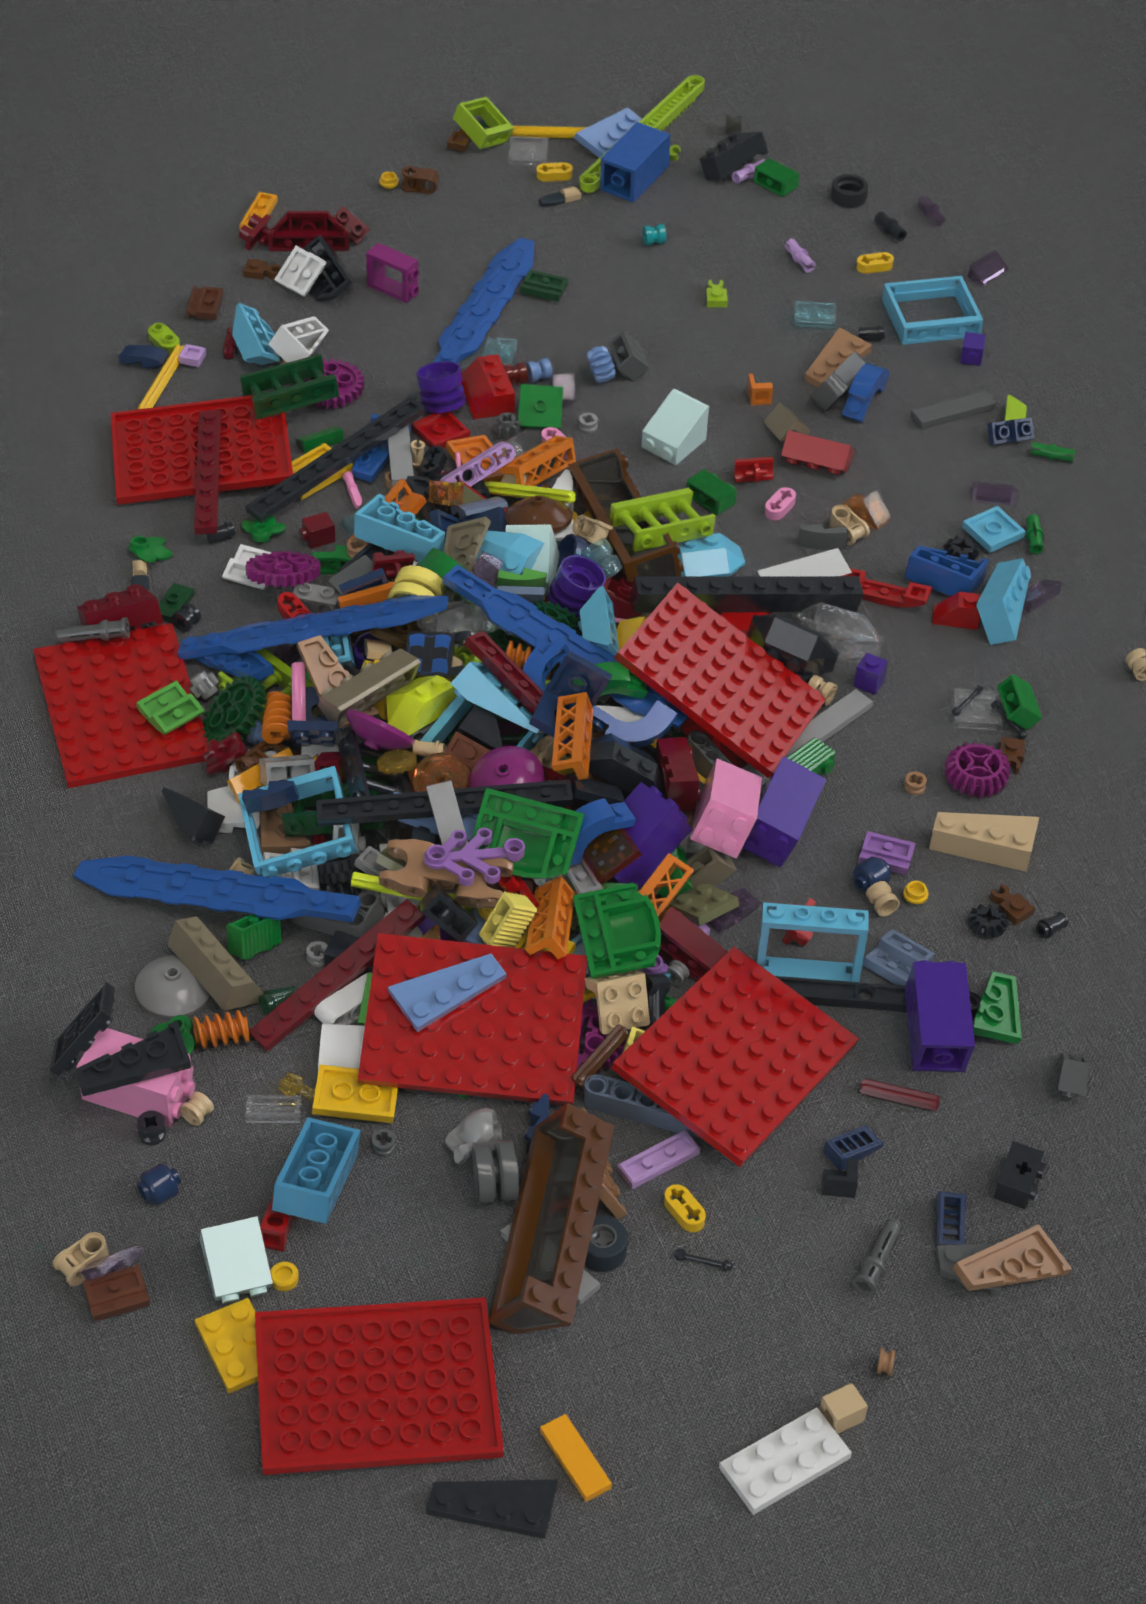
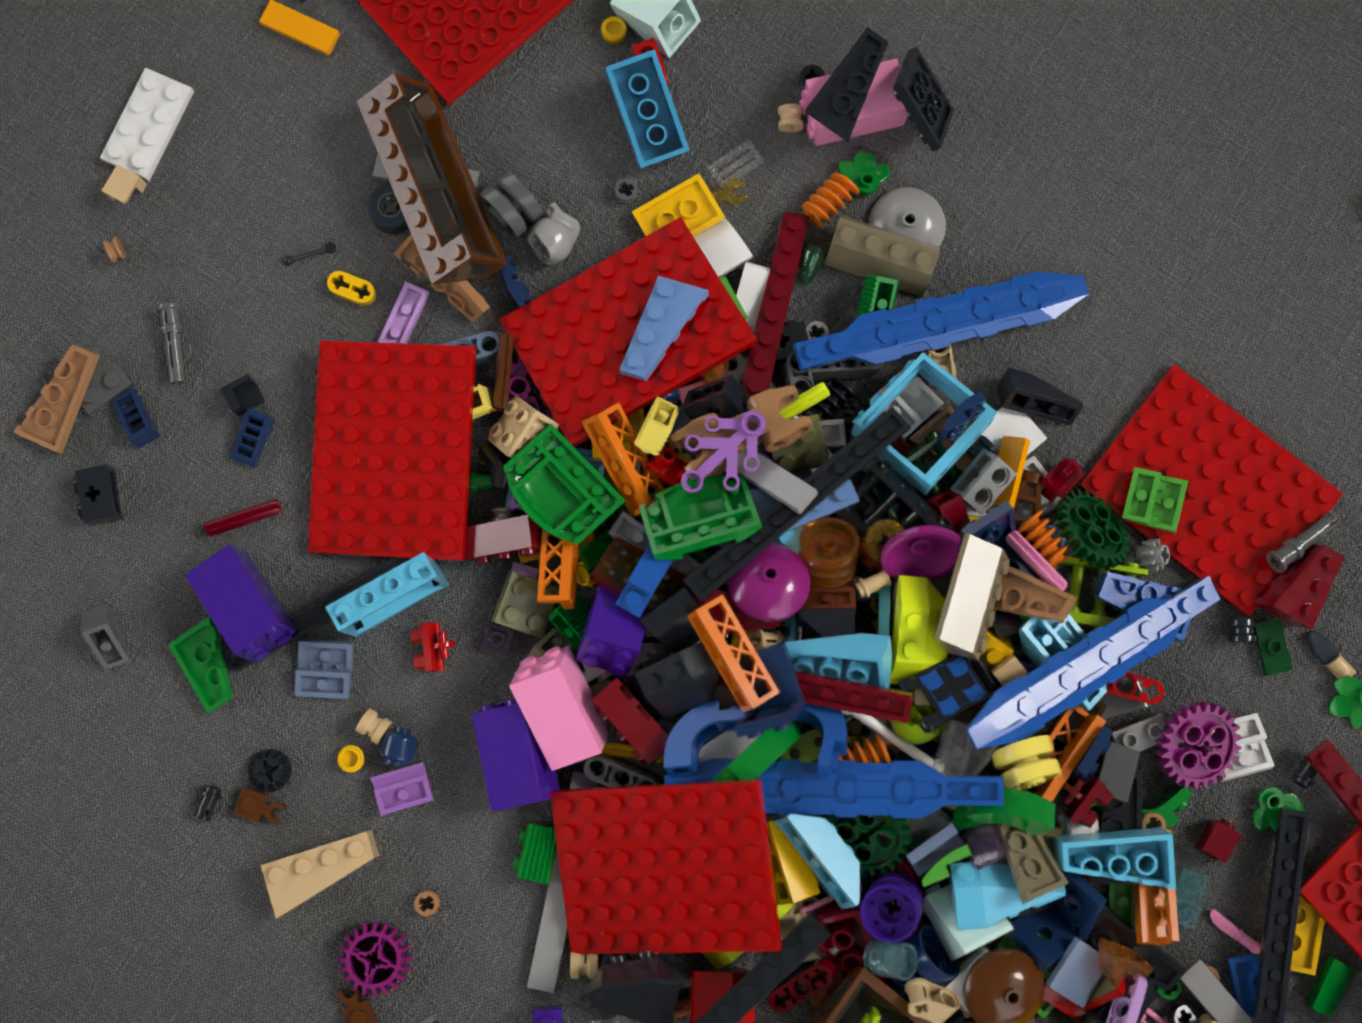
camera: 145 degrees right, 35 degrees up
(159, 1184) = (764, 36): dark blue head -> none

